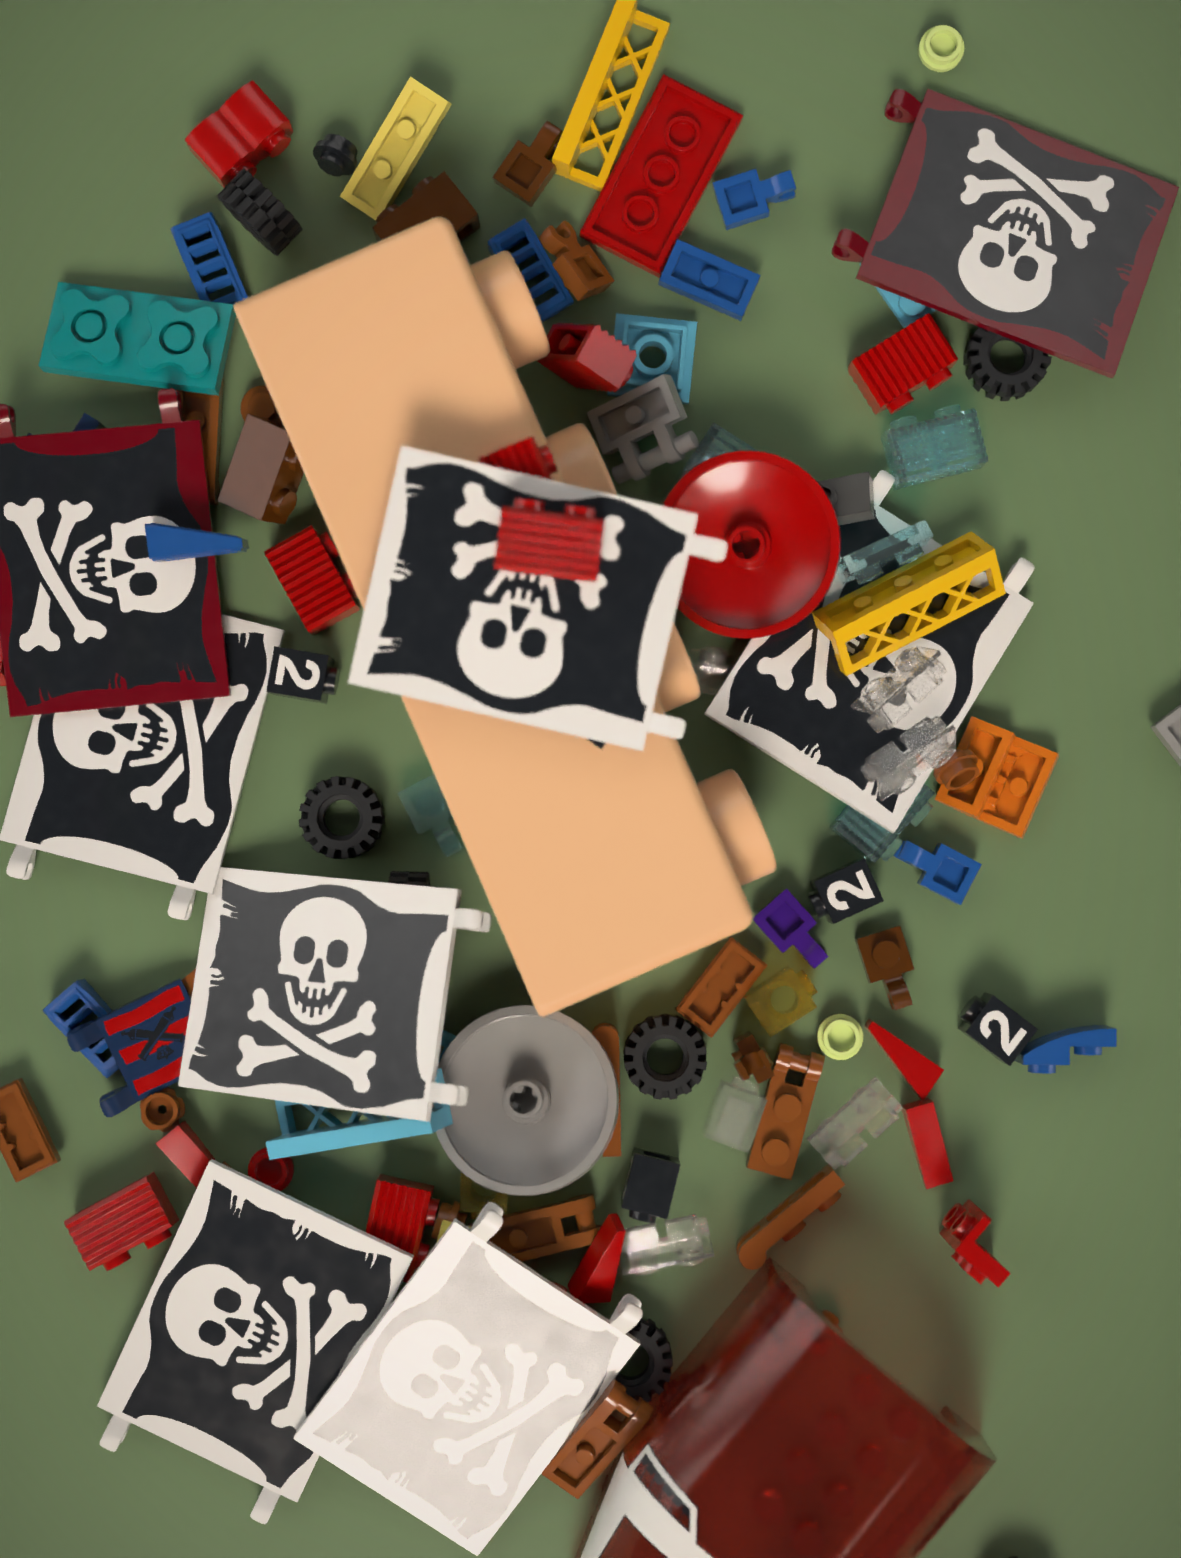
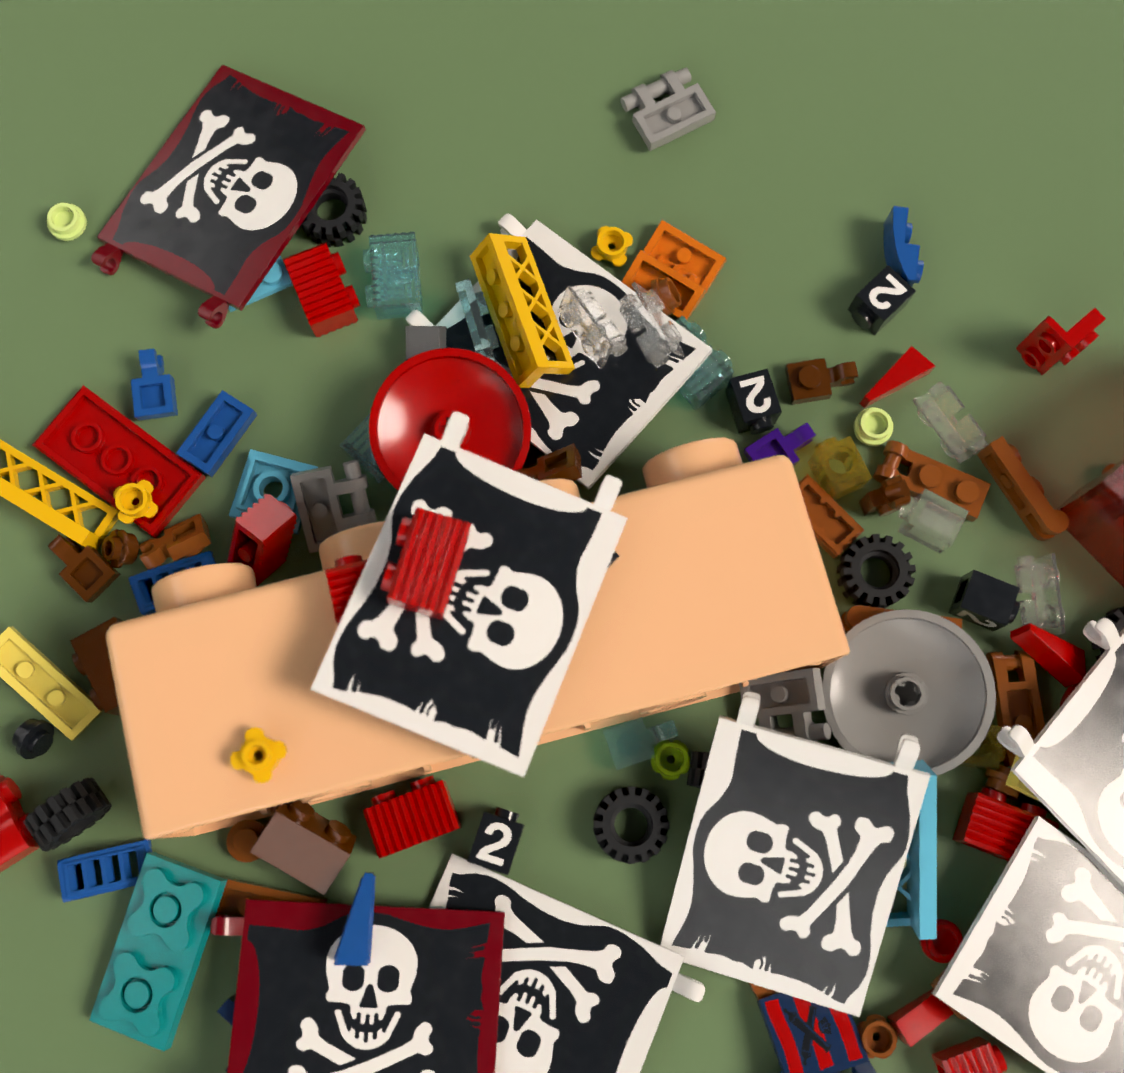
camera: 85 degrees left, 10 degrees down
(336, 418) = (245, 758): none -> yellow plate
(412, 841) = (678, 751): none -> lime plate
(501, 976) = (795, 694): none -> light grey plate
(558, 201) = (120, 548): none -> reddish brown plate
(613, 193) = (127, 493): none -> yellow plate
(715, 668) = (559, 464): none -> reddish brown plate
(927, 1142) = (968, 370): red piece -> none
(943, 870) = (745, 323): blue plate -> none
(1026, 689) = (612, 235): none -> yellow plate

